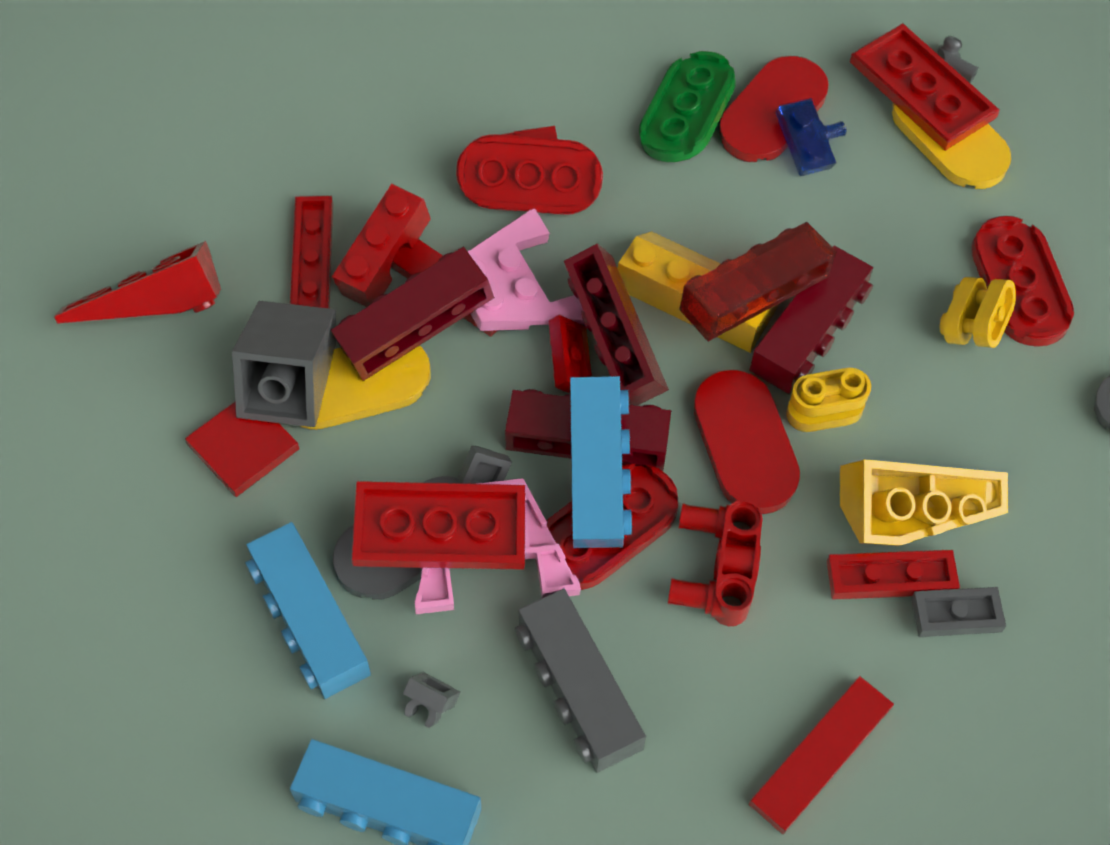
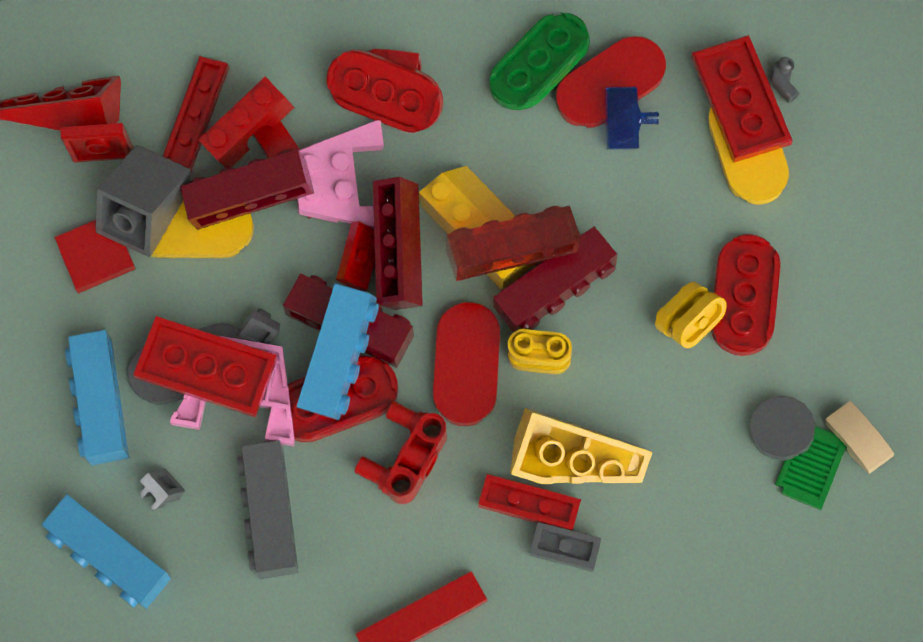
camera: 25 degrees right, 10 degrees up
(206, 312) = (96, 142): none -> red tile

